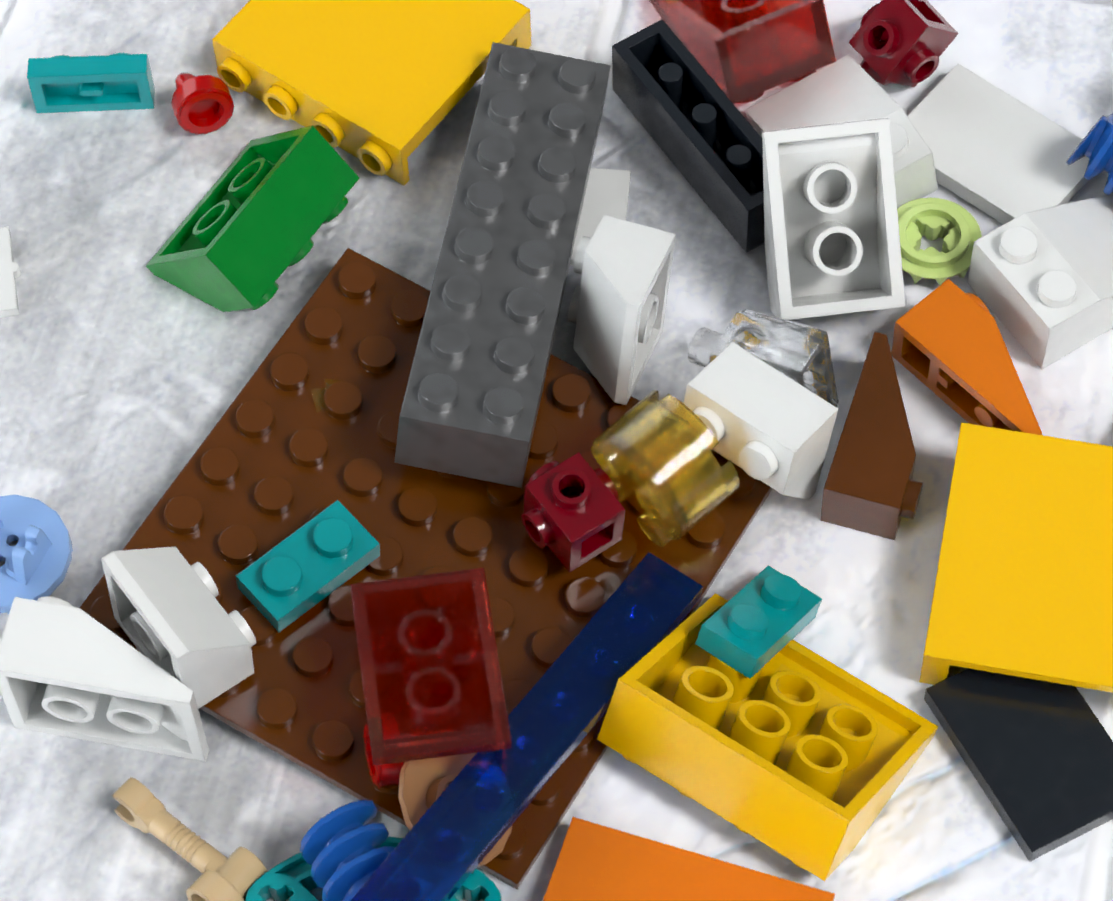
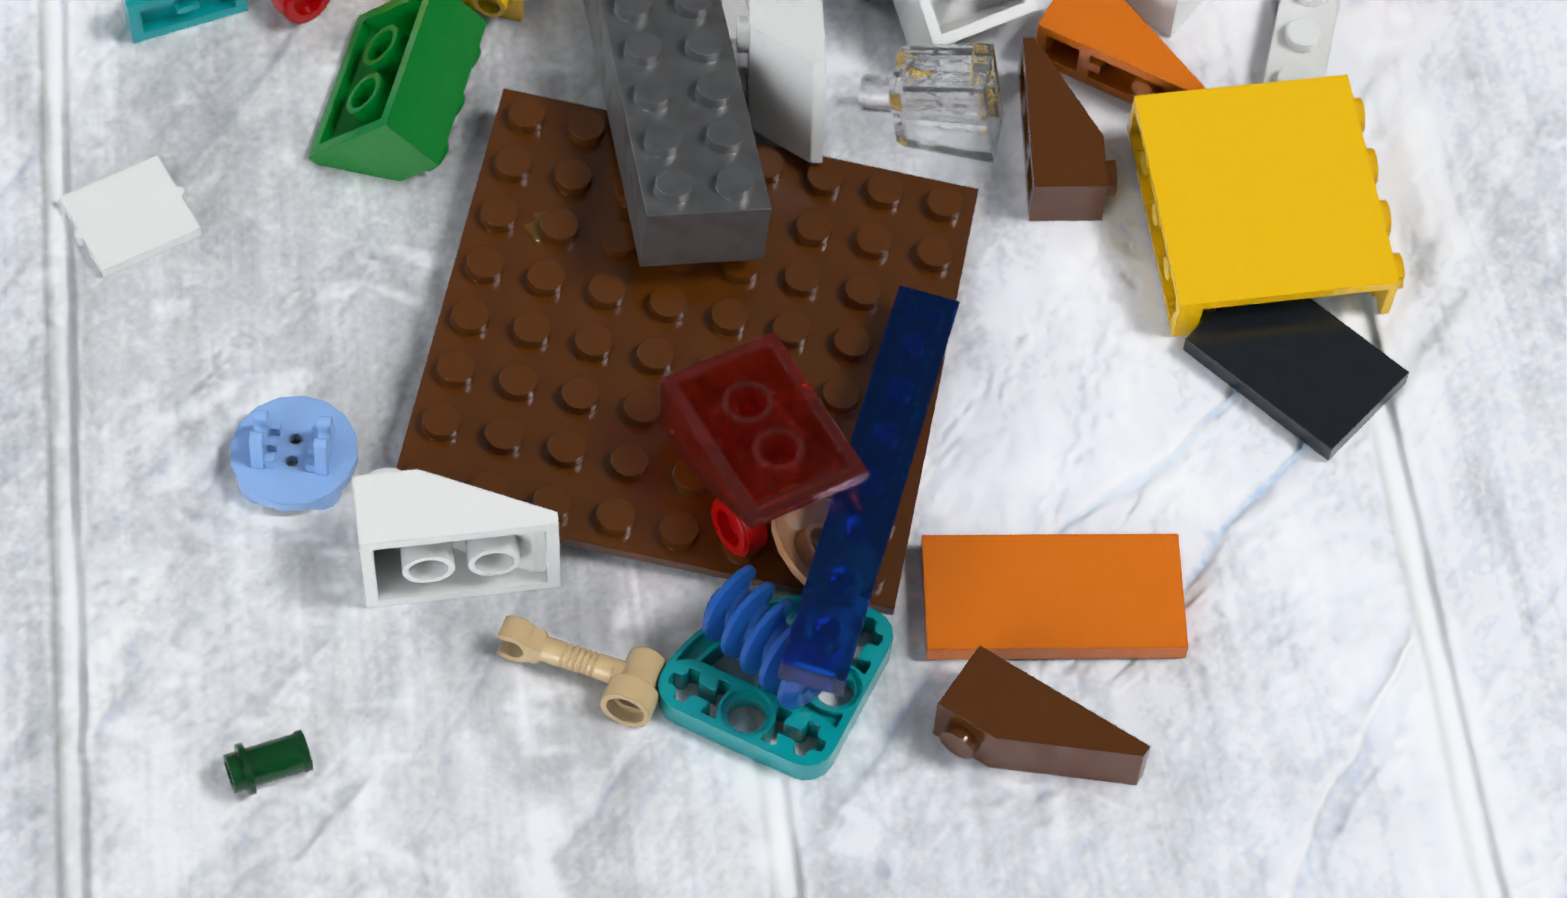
camera: 25 degrees left, 0 degrees up
(177, 620) = (505, 454): white slope -> none
(308, 565) = (595, 381): teal plate -> none
(573, 510) = (822, 264): dark red brick -> none
(664, 466) = (890, 203): clear yellow brick -> none
(758, 621) = (1019, 319): teal plate -> none
(763, 421) = (959, 139): white slope -> none
(784, 756) = (1062, 416): yellow slope -> none

